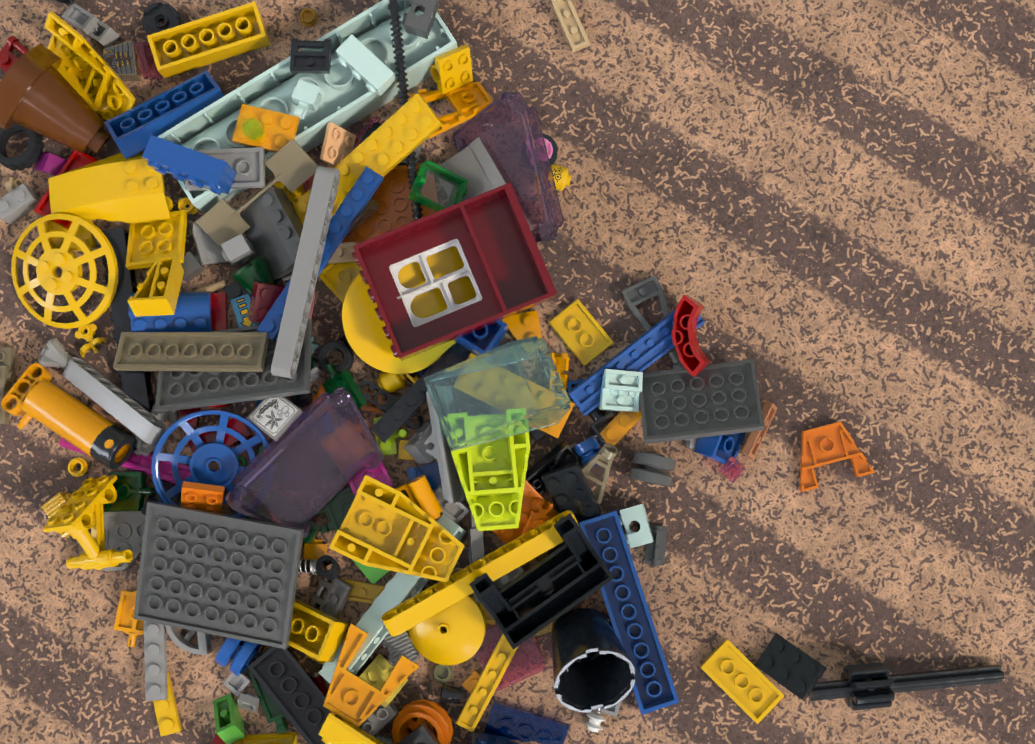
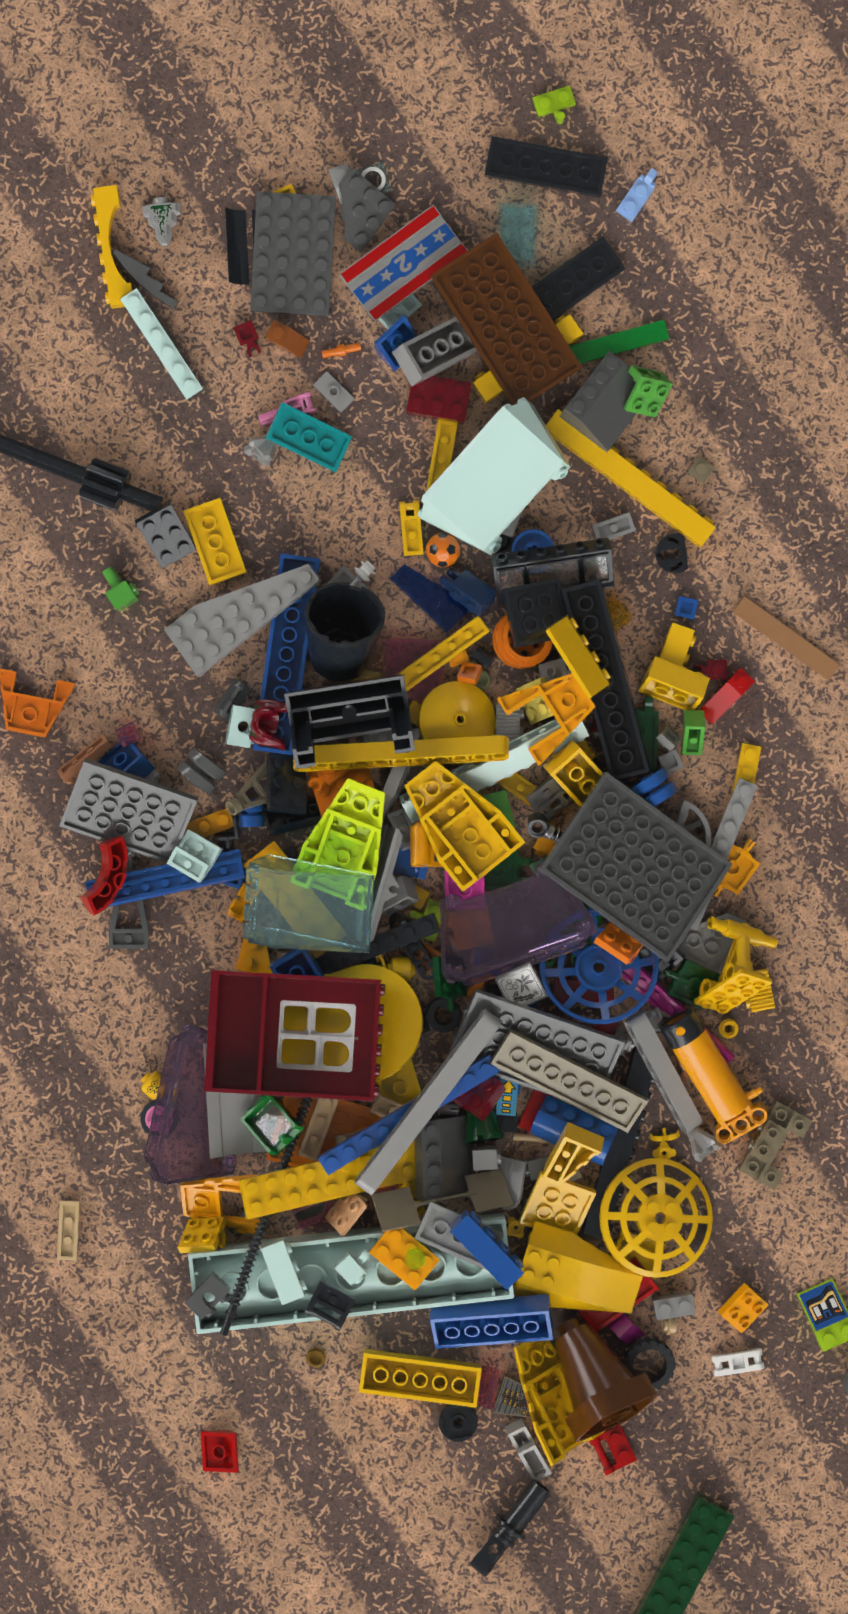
camera: 155 degrees left, 5 degrees up
(397, 202) = (318, 1128): none -> tan tile
(455, 675) = (469, 673): none -> orange plate
(581, 332) = (204, 928): yellow tile -> none
(617, 540) = (265, 723): none -> dark red hair
(697, 613) = (223, 623): none -> light grey wing
(804, 593) = (121, 592): none -> bright green brick

